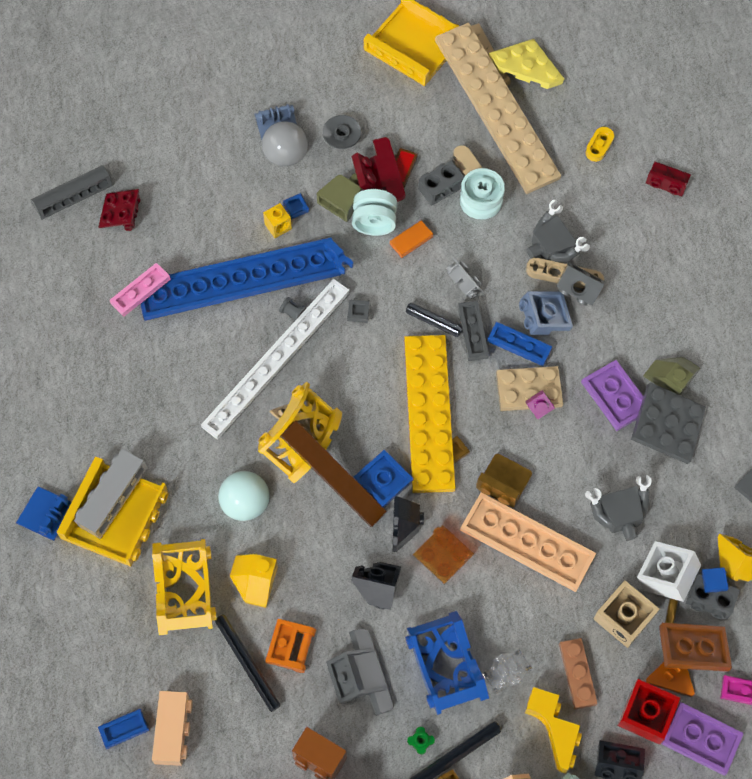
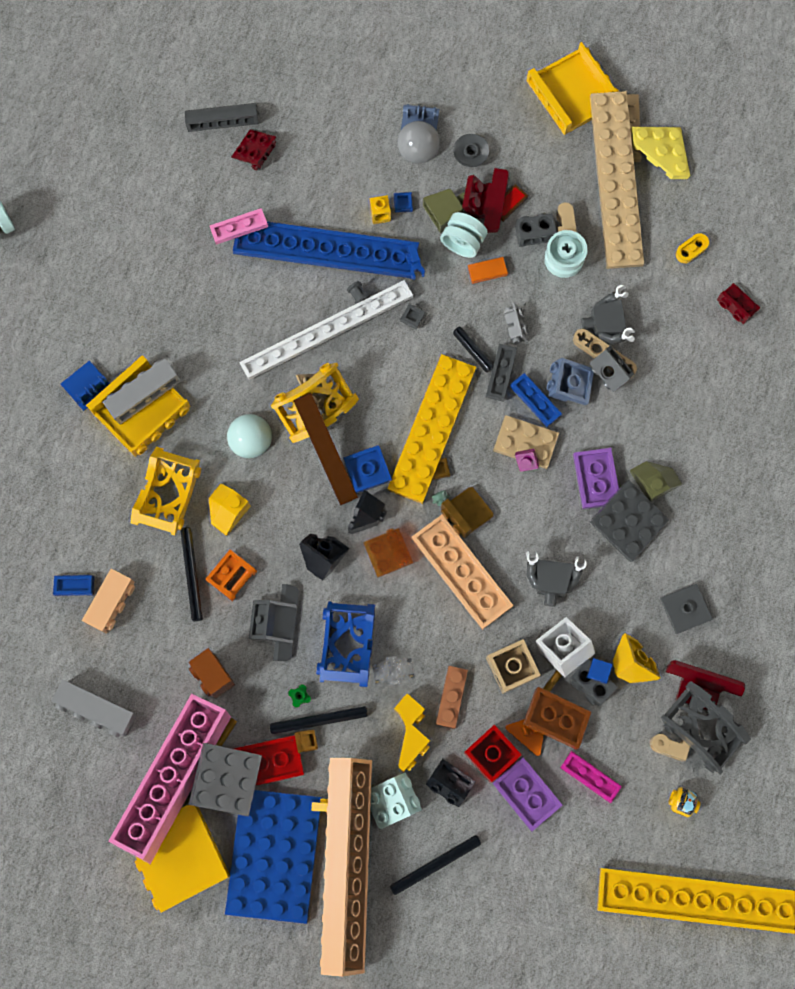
camera: 25 degrees right, 10 degrees up
(471, 477) = (440, 497): none -> sand green plate

